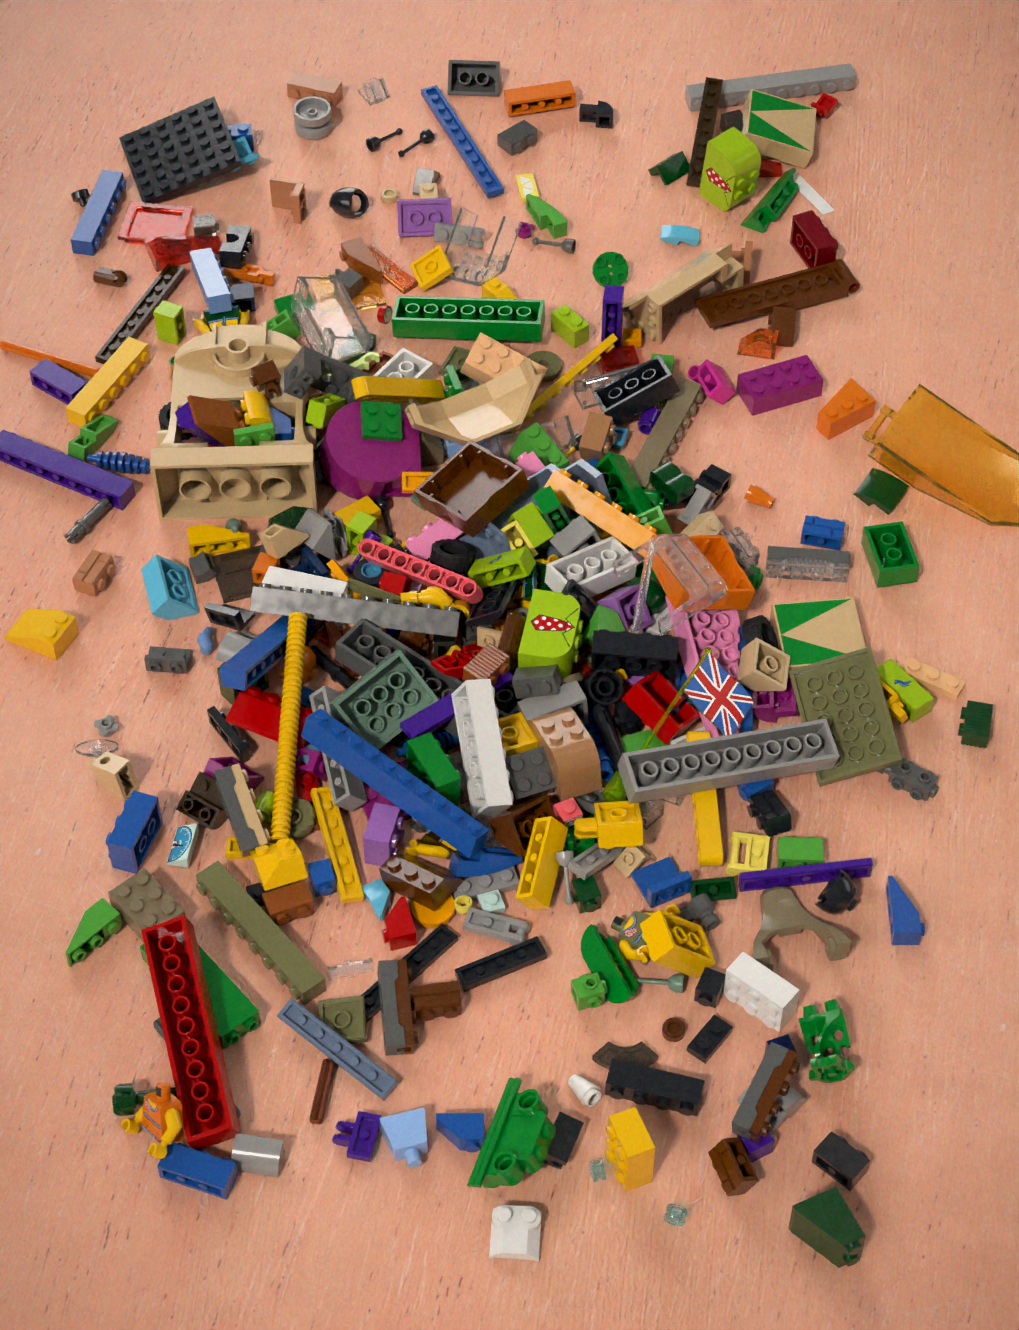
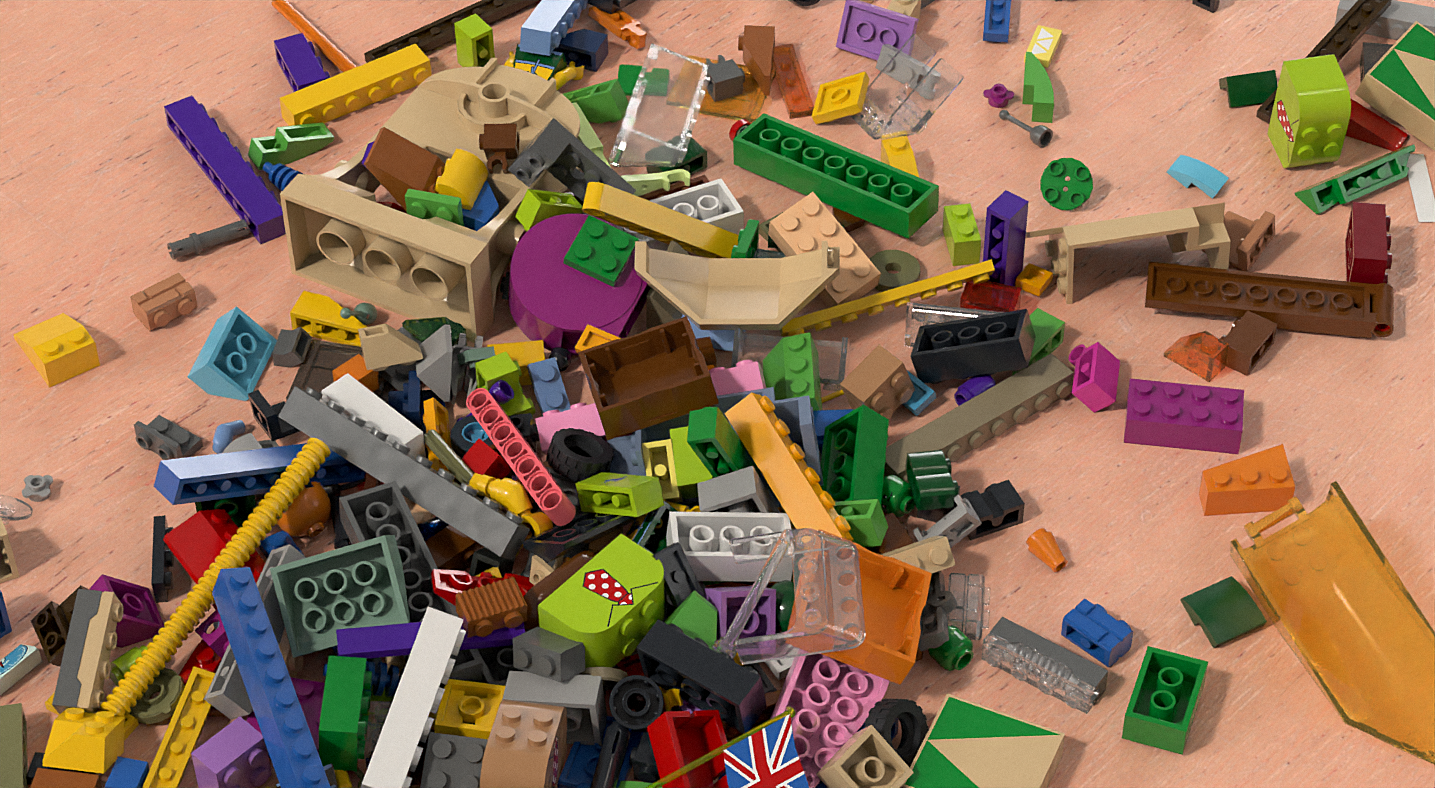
camera: 30 degrees right, 5 degrees down
(341, 522) = (472, 356): none -> sand green plate
(392, 524) = (548, 385): none -> medium blue plate

